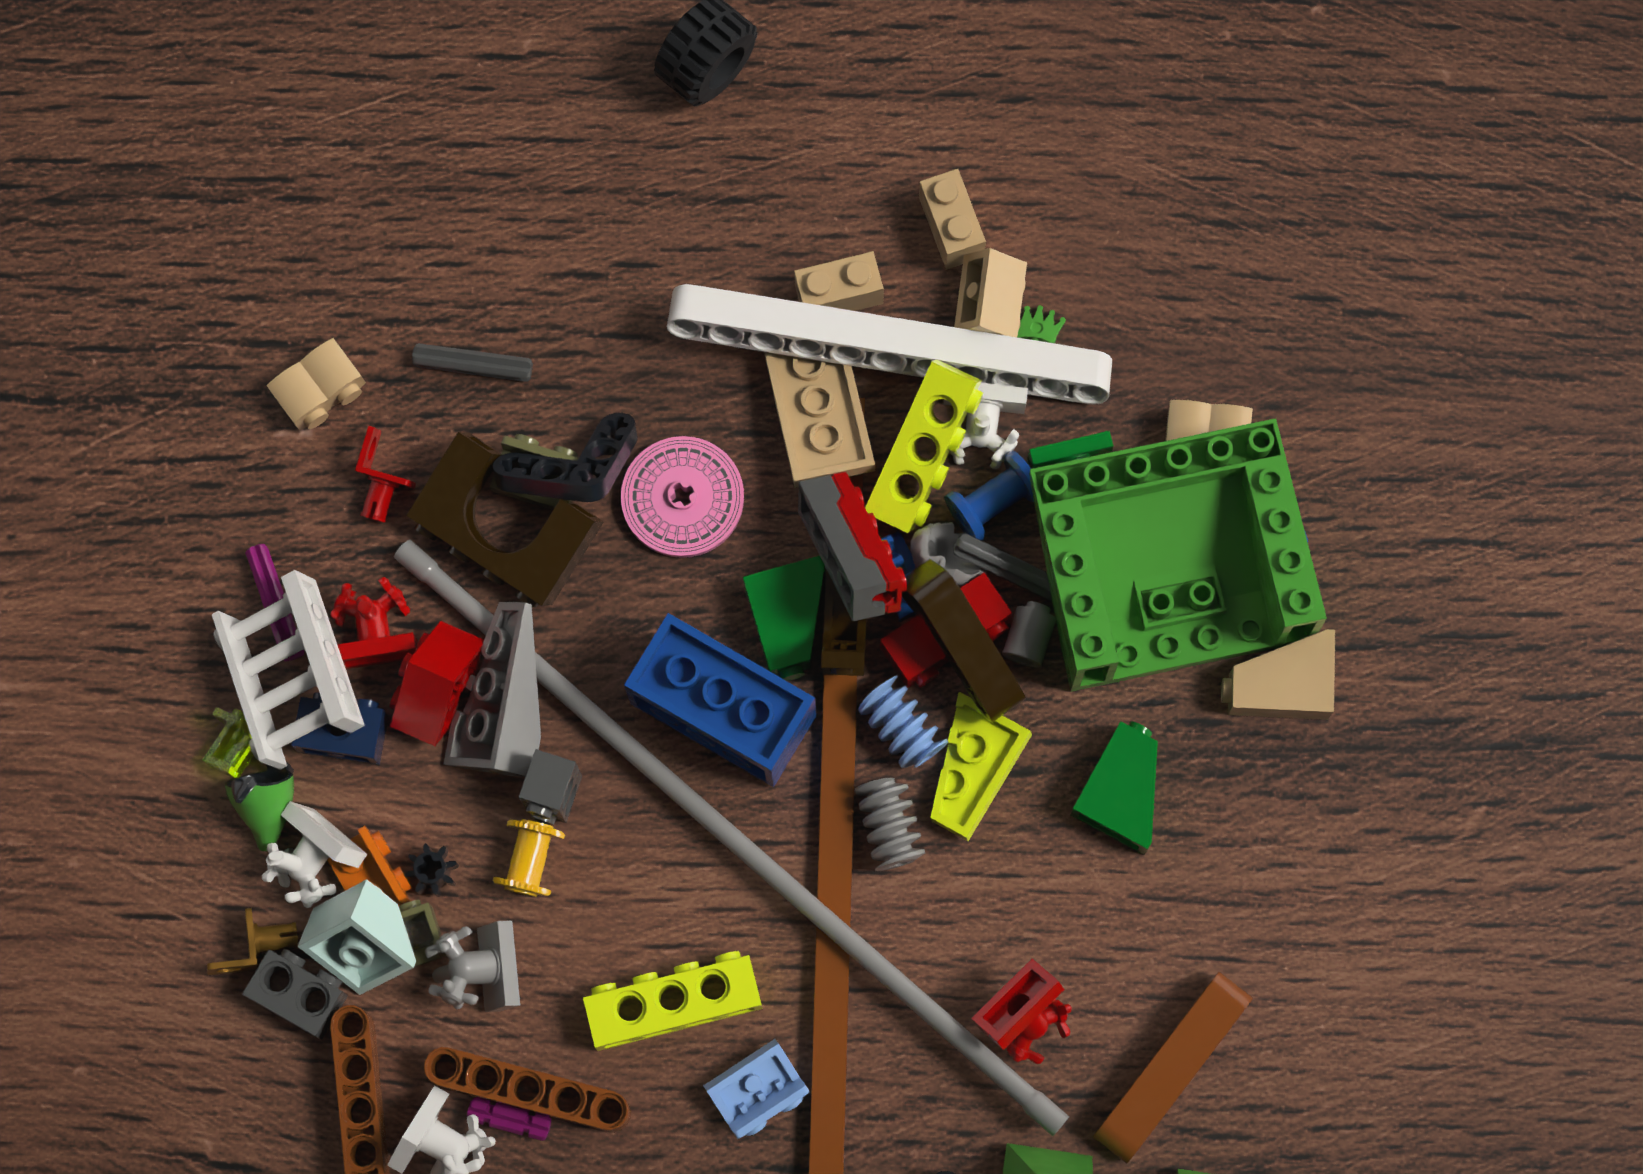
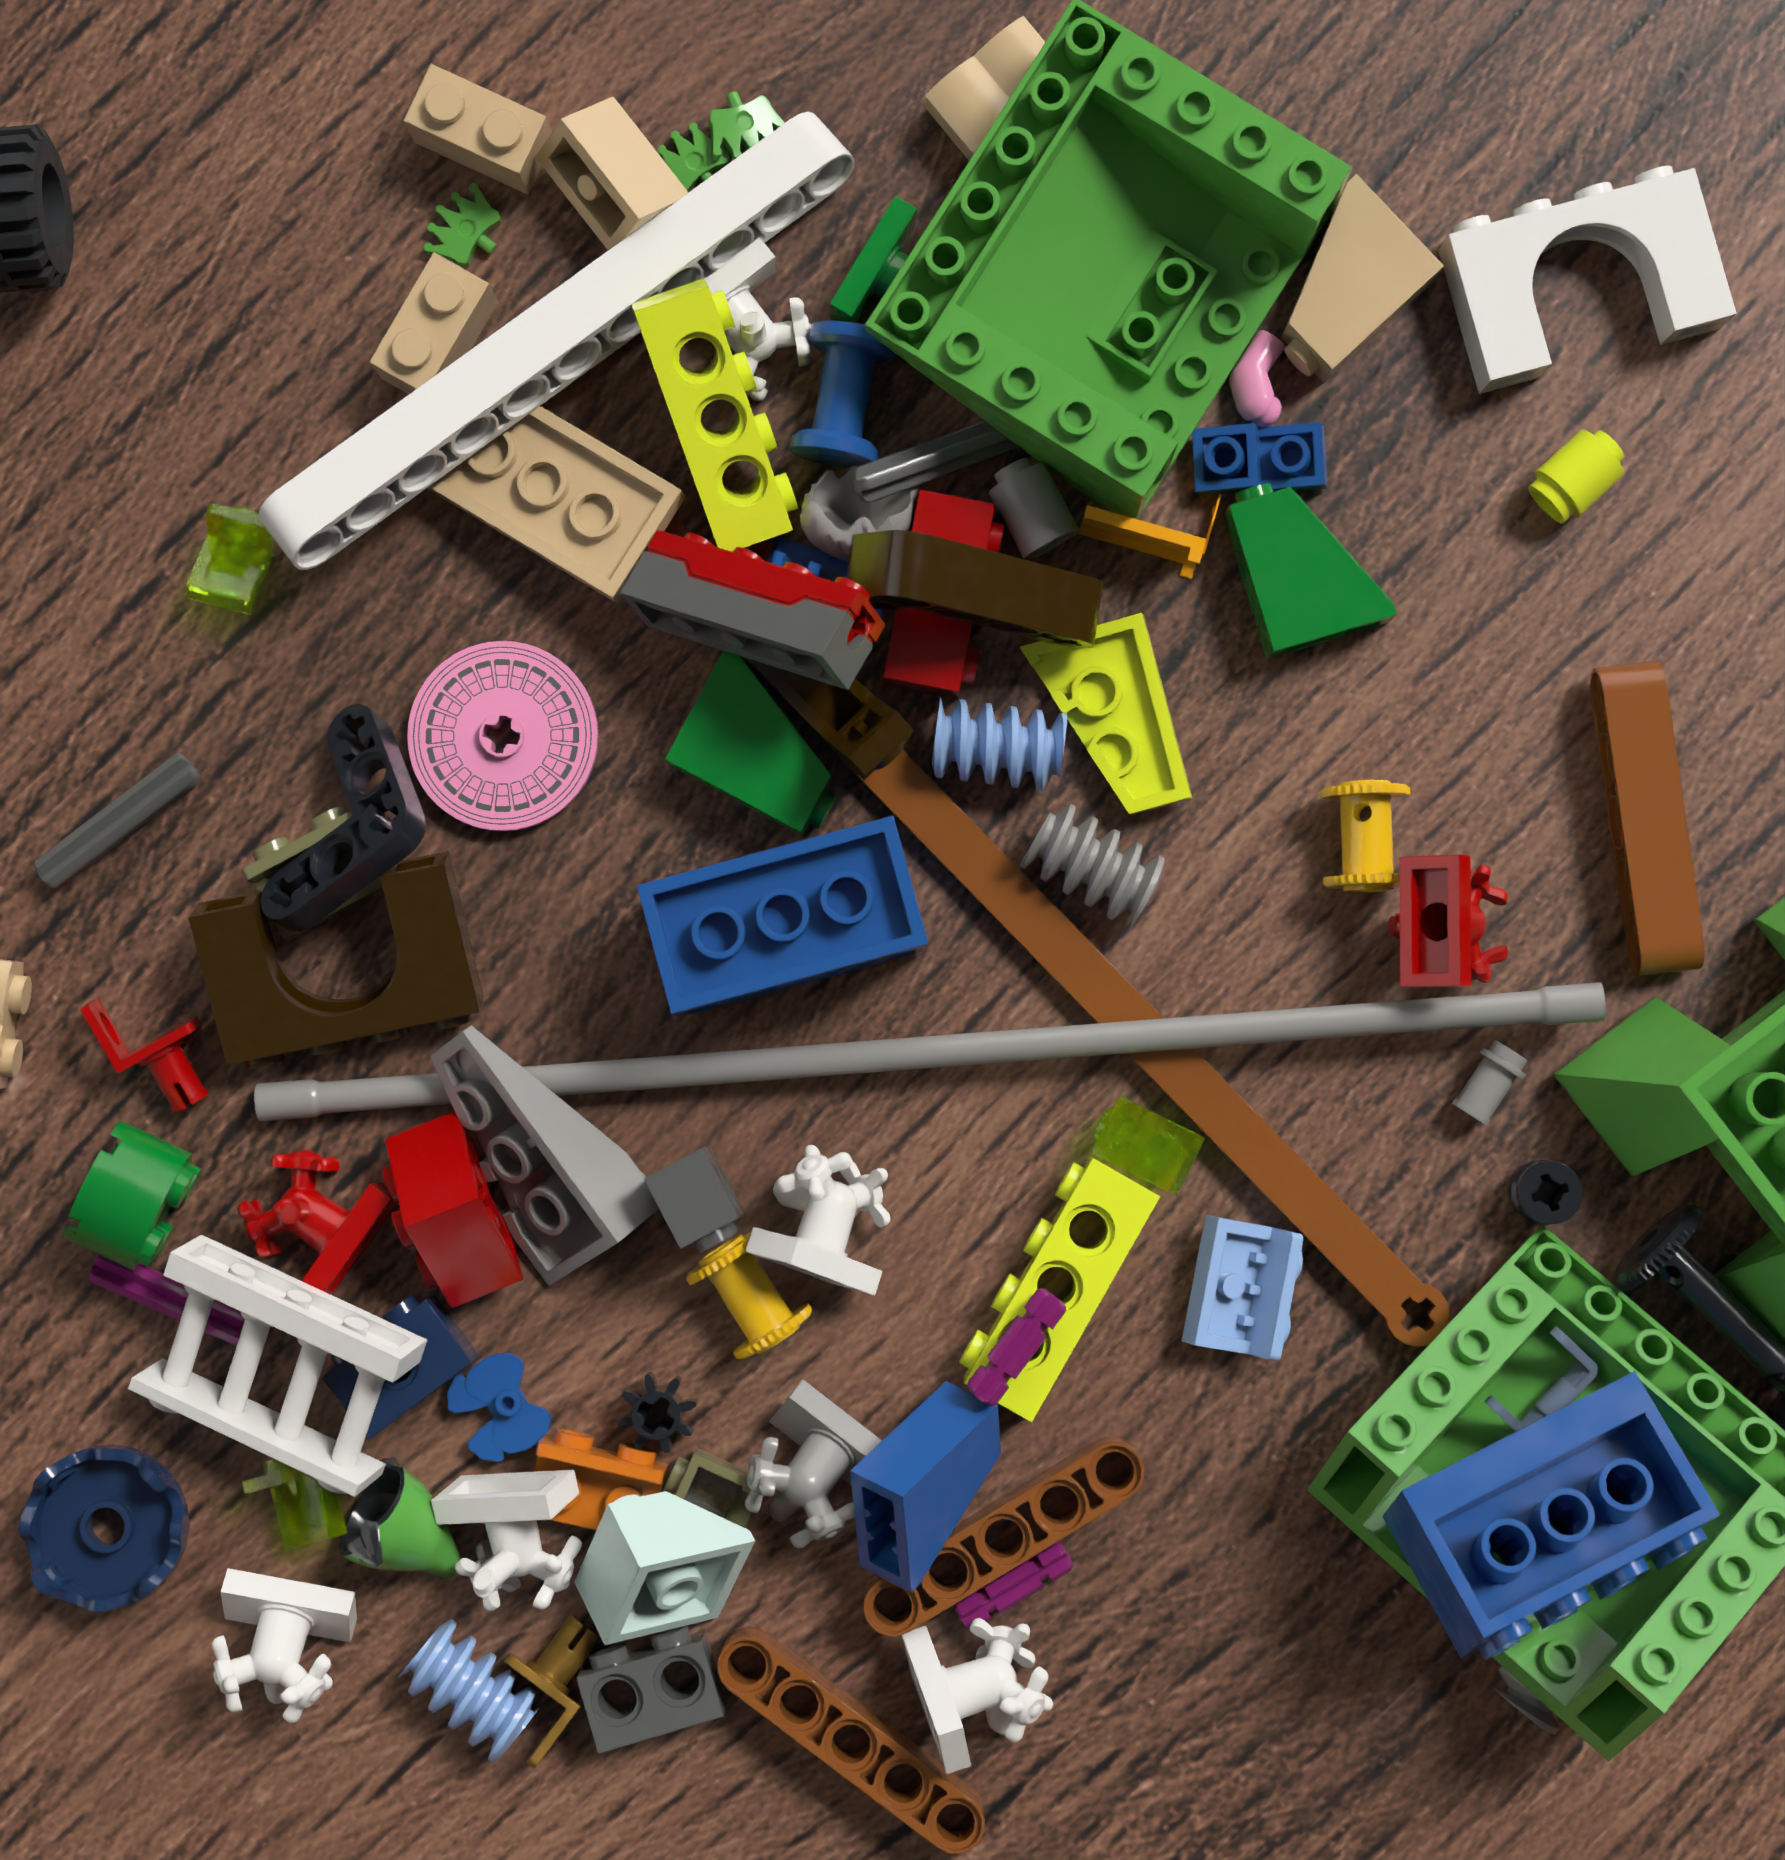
camera: 45 degrees left, 10 degrees up
(113, 649) = (60, 1536): none -> dark blue plate
(170, 787) = (284, 1617): none -> white piece
(215, 908) = (471, 1690): none -> light blue piece
(303, 530) = (130, 1196): none -> green brick
(364, 809) = (497, 1384): none -> blue piece
(516, 1021) = (922, 1482): none -> blue slope
(598, 859) = (826, 1220): none -> white piece
(623, 1003) = (1016, 1347): none -> magenta axle
(643, 298) = (231, 559): none -> clear neon green bracket
(780, 977) = (1146, 1144): none -> clear neon green bracket
(901, 258) = (466, 229): none -> bright green piece
(972, 1115) = (1490, 1082): none -> light grey pin
(1028, 938) = (1366, 844): none -> yellow hose
(1070, 701) = (1147, 537): none -> light orange piece
(1075, 332) = (741, 124): none -> bright green piece
(1155, 709) = (1247, 456): none -> blue slope
(1191, 680) = (1251, 383): none -> bright pink arm
(1303, 874) = (1577, 475): none -> neon yellow brick
(1457, 790) = (1653, 223): none -> white arch

